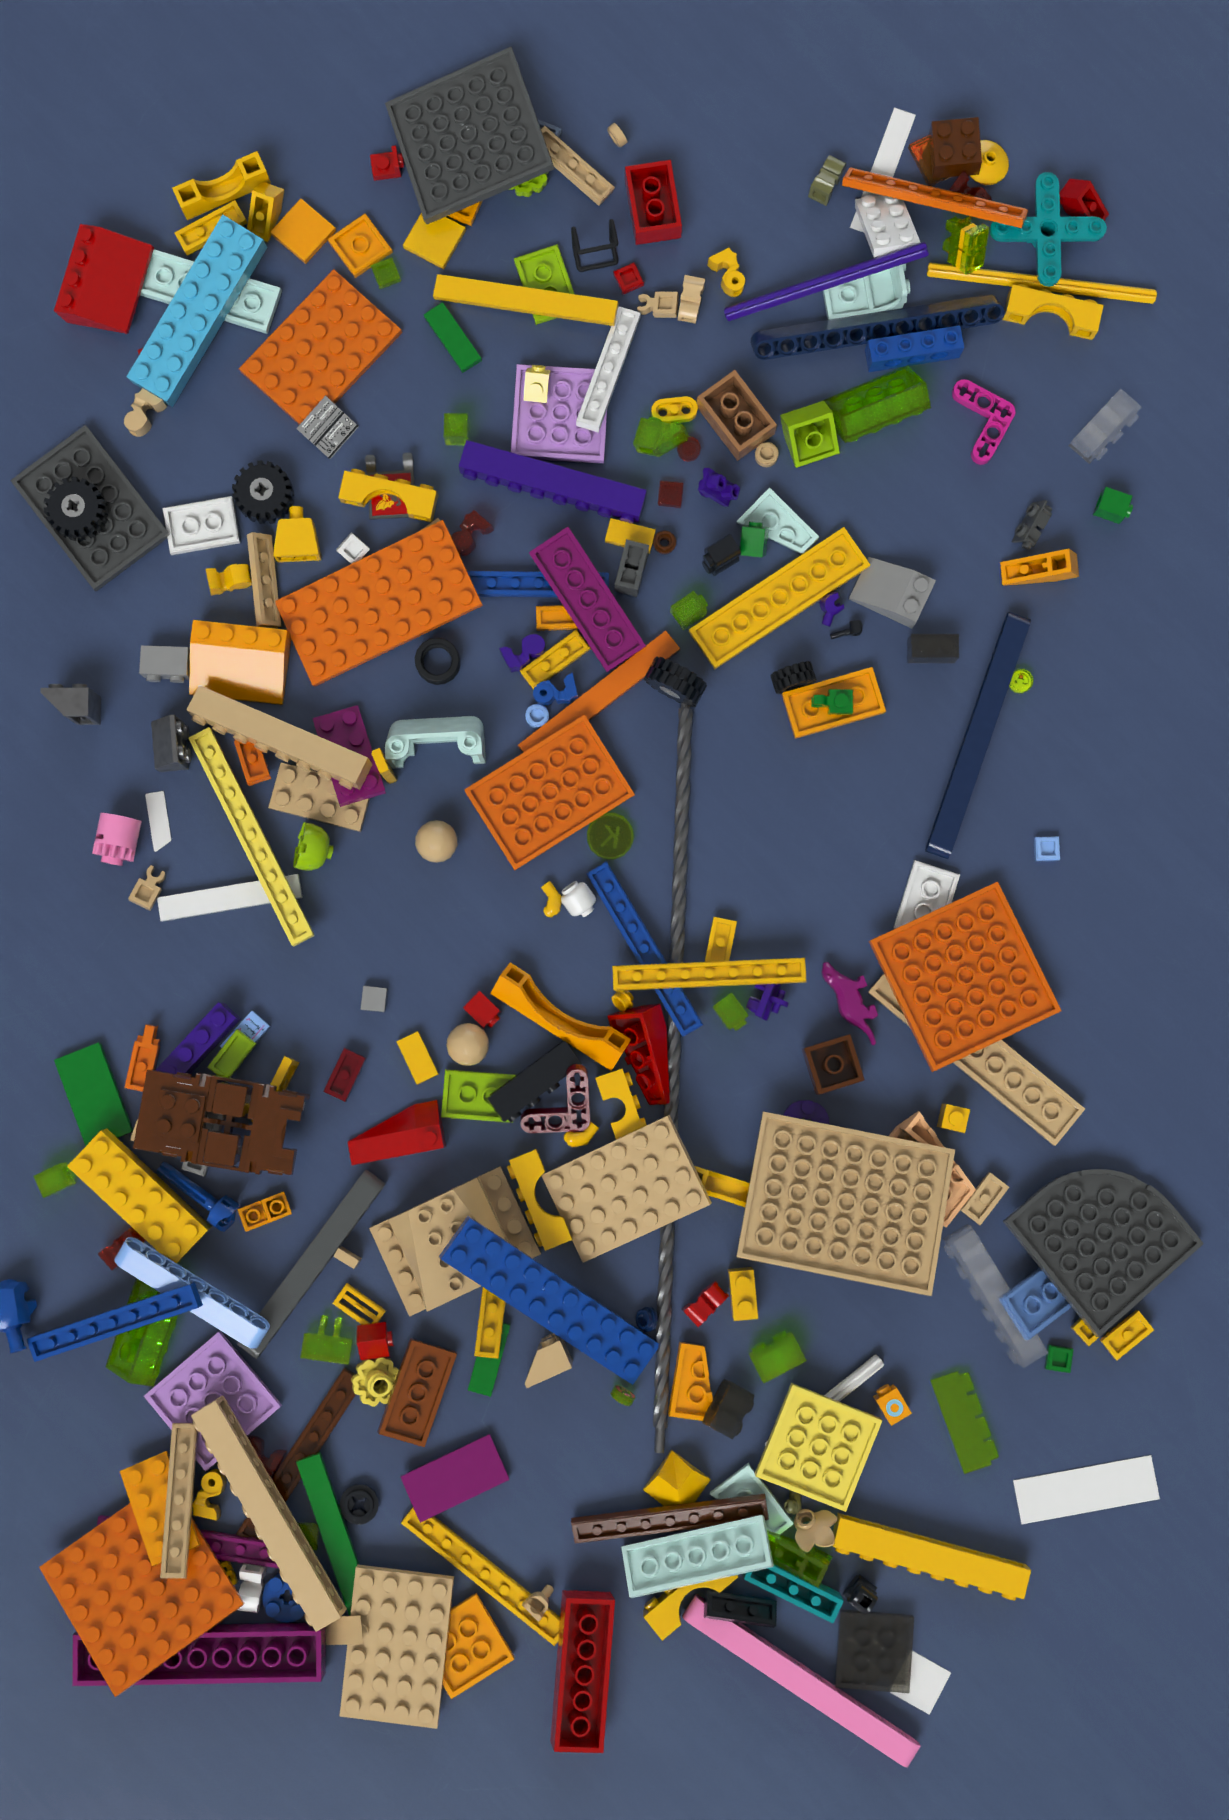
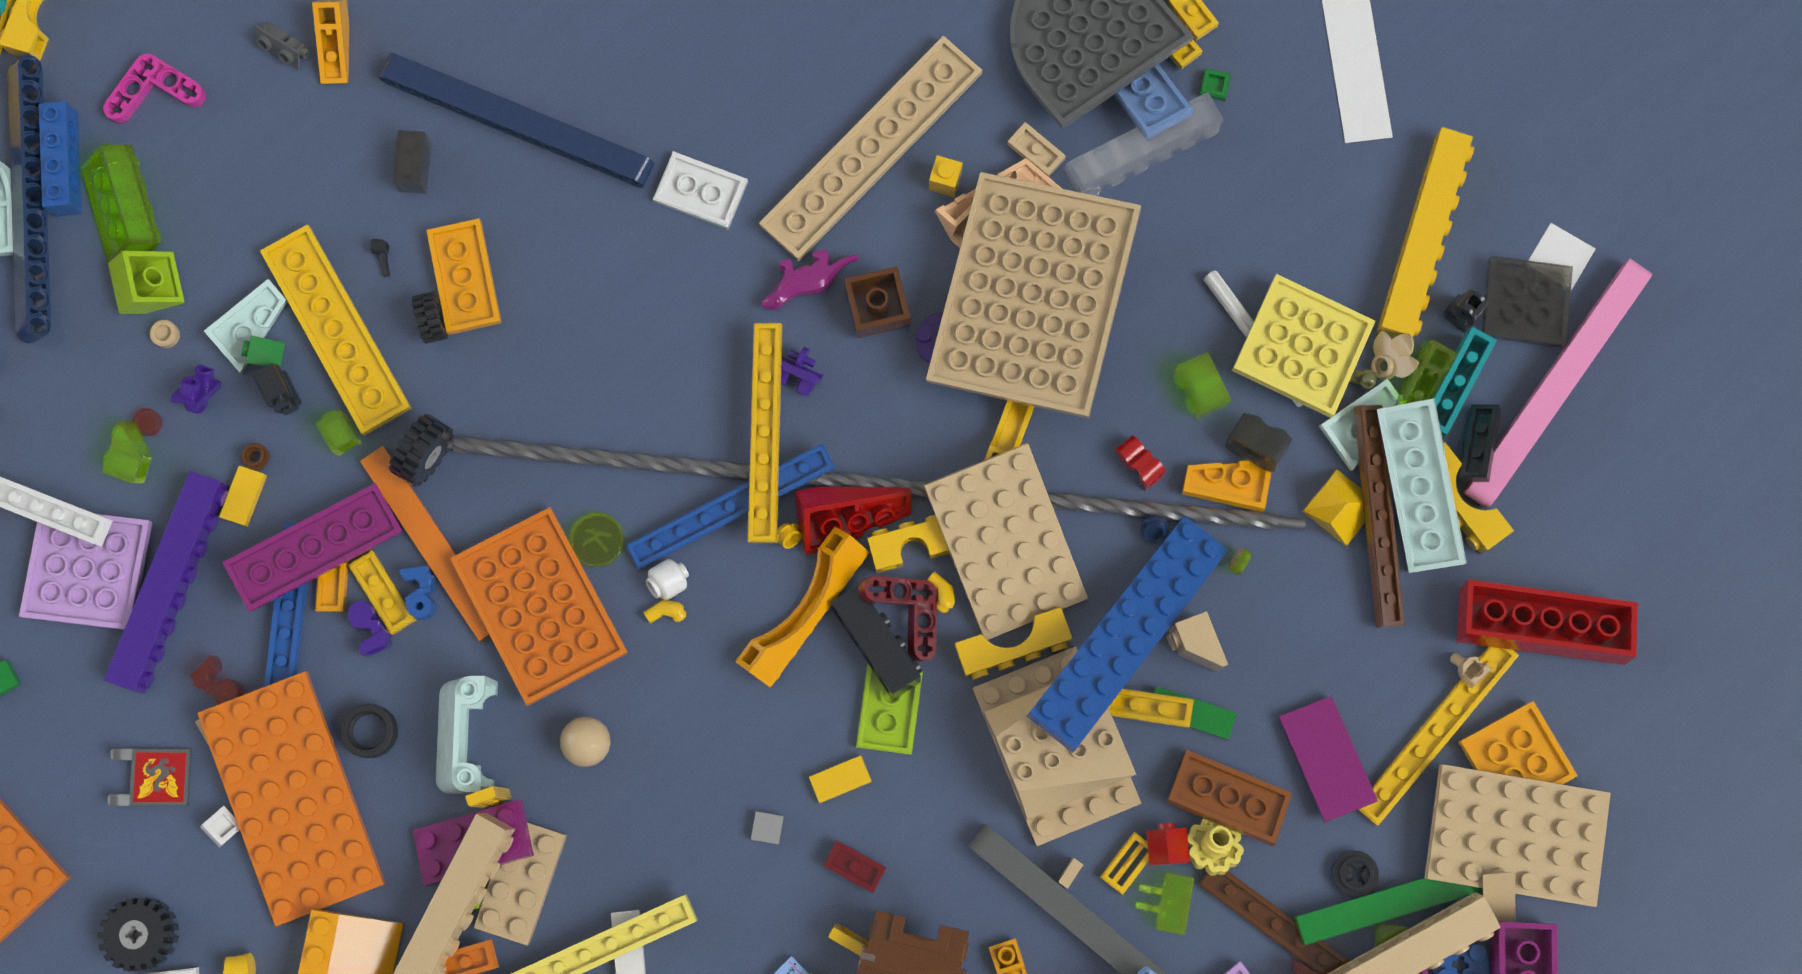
camera: 85 degrees left, 5 degrees down
(263, 580) = (247, 938): tan plate -> none
(296, 538) = (200, 895): yellow torso -> none
(312, 847) = (580, 892): lime cylinder -> none
(327, 427) = (67, 851): light grey sticker -> none
(359, 489) = (147, 812): yellow arch -> none
(406, 1133) = (927, 795): red wedge -> none
(456, 428) = (89, 692): clear neon green brick -> none
(467, 1044) = (828, 716): tan piece -> none
(483, 1010) = (789, 698): red brick -> none
(536, 384) = (45, 592): light yellow bracket -> none
(537, 715) = (446, 617): light blue tile -> none
(631, 568) = (281, 494): dark grey brick -> none
(670, 494) = (198, 446): clear red tile -> none
(673, 408) = (95, 437): yellow plate -> none
(720, 940) = (726, 420): yellow plate -> none
(730, 1012) = (811, 412): clear neon green brick -> none
(736, 415) = (112, 363): medium nougat brick -> none
(743, 1293) = (1130, 419): yellow brick -> none
(828, 606) = (353, 273): dark purple piece -> none
(838, 701) = (461, 270): green plate -> none
(891, 1404) = (1258, 264): light orange brick -> none
(893, 591) = (341, 201): light grey slope -> none
(959, 1414) = (1279, 193): clear neon green windscreen -> none
(964, 976) = (787, 152): orange plate -> none
(1021, 681) = (460, 69): clear neon green tile -> none
(1047, 848) = (651, 56): light blue tile -> none

